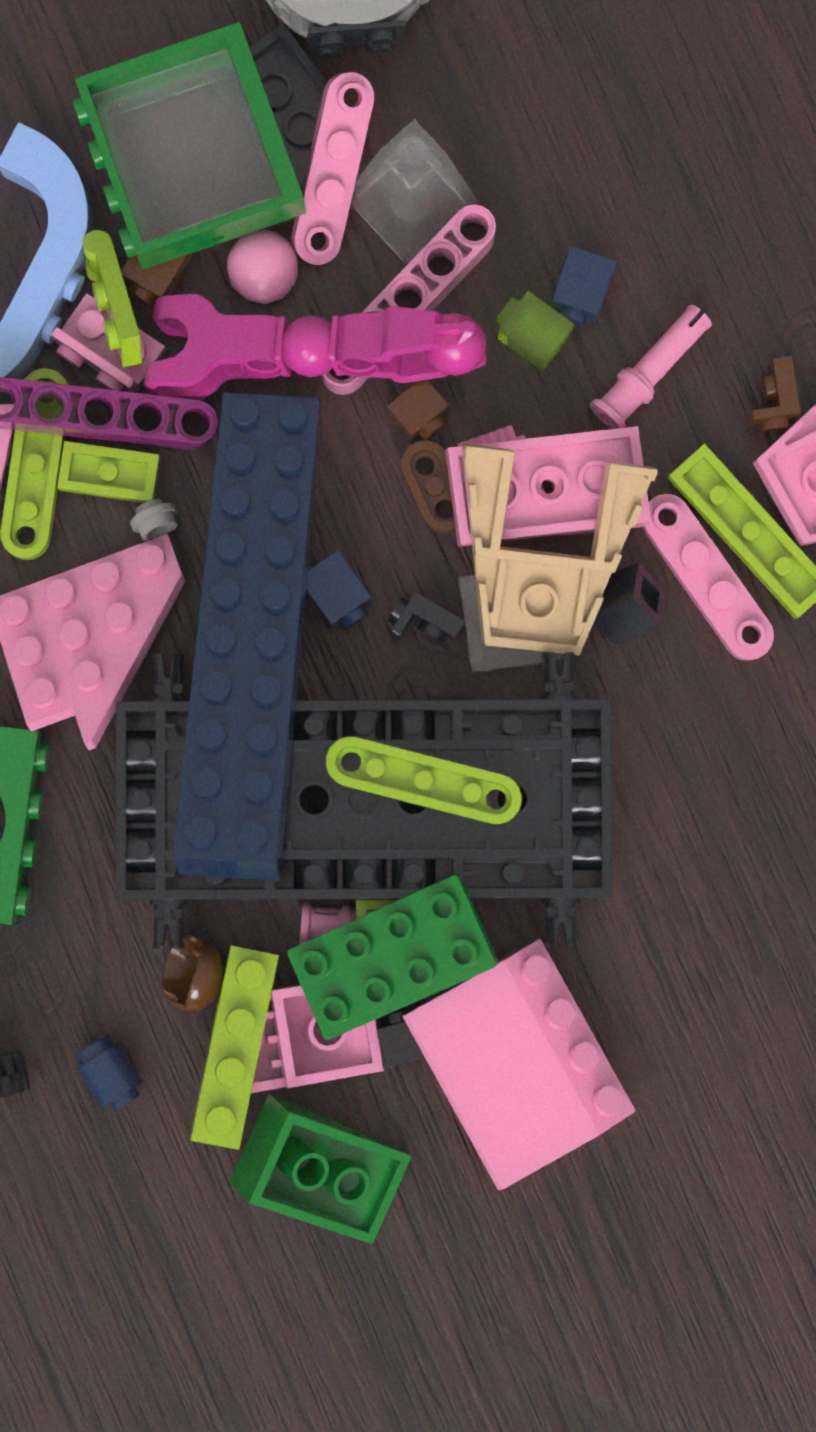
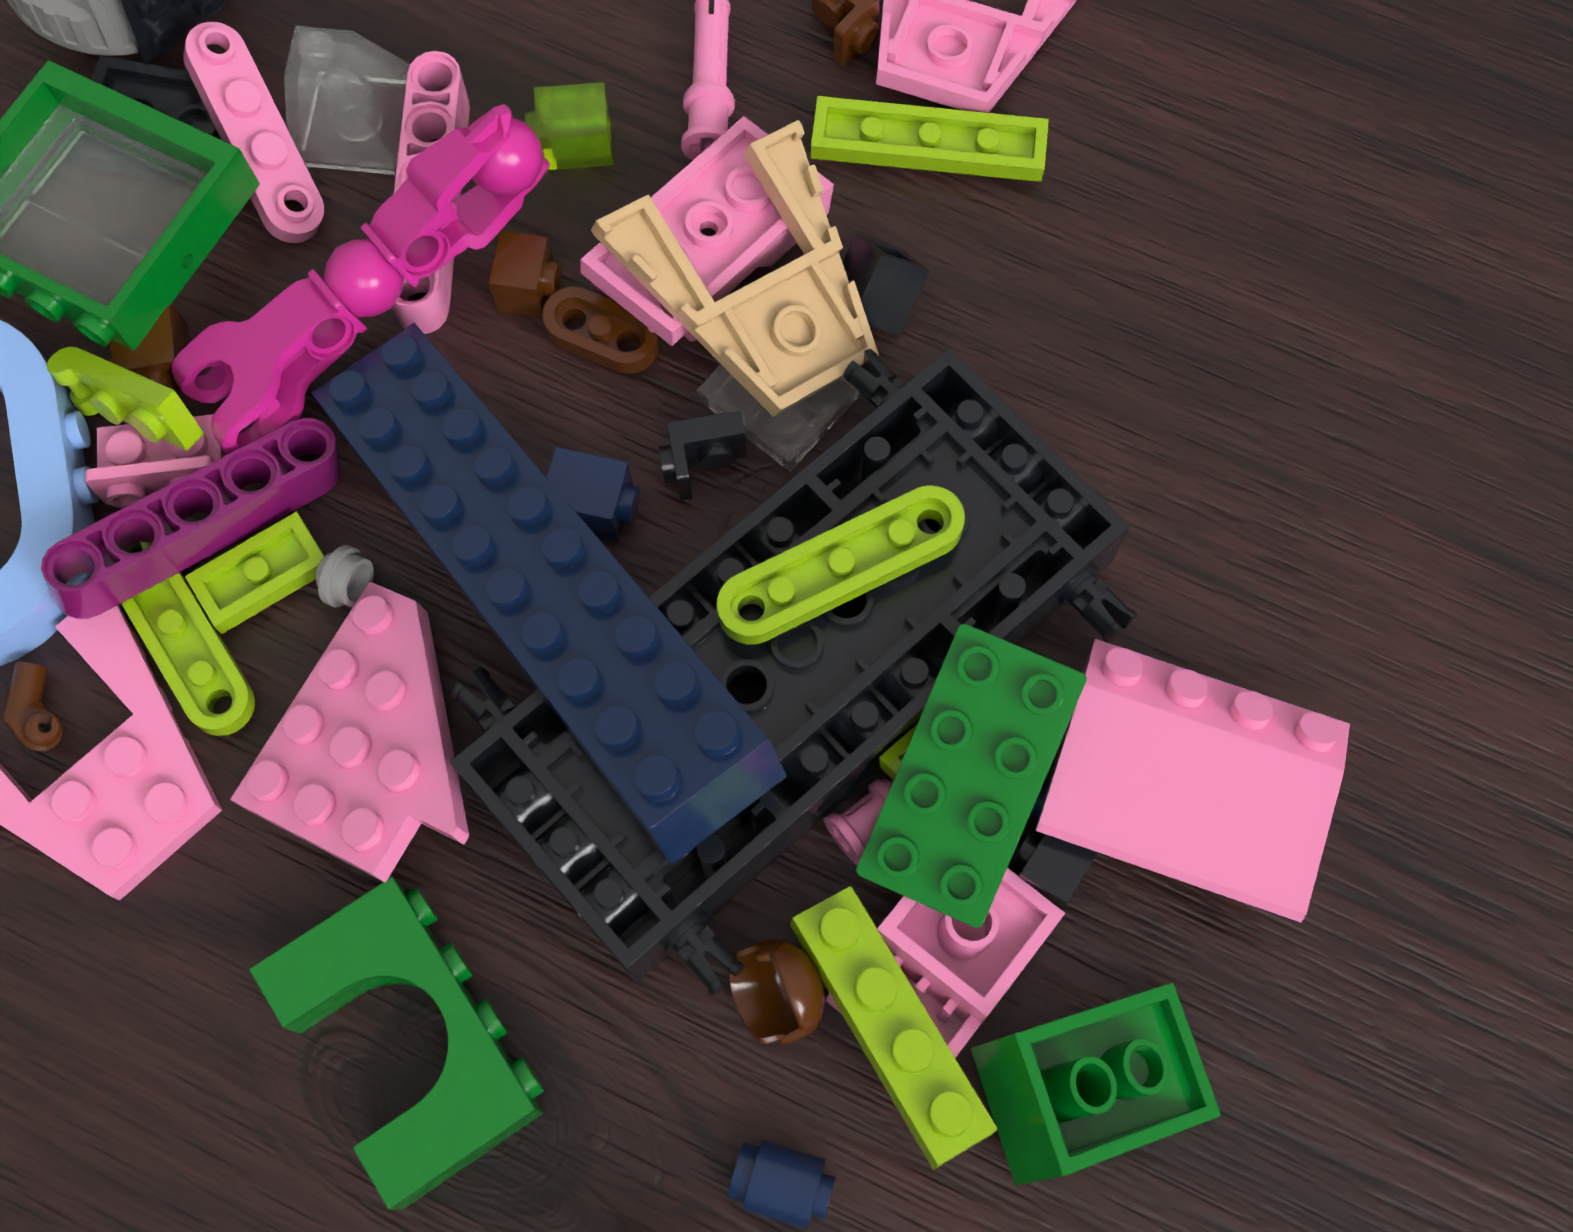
camera: 40 degrees left, 15 degrees down
(262, 266) = (255, 268): bright pink hair -> none
(582, 286) = (582, 50): dark blue brick -> none
(708, 578) = (933, 211): bright pink plate -> none

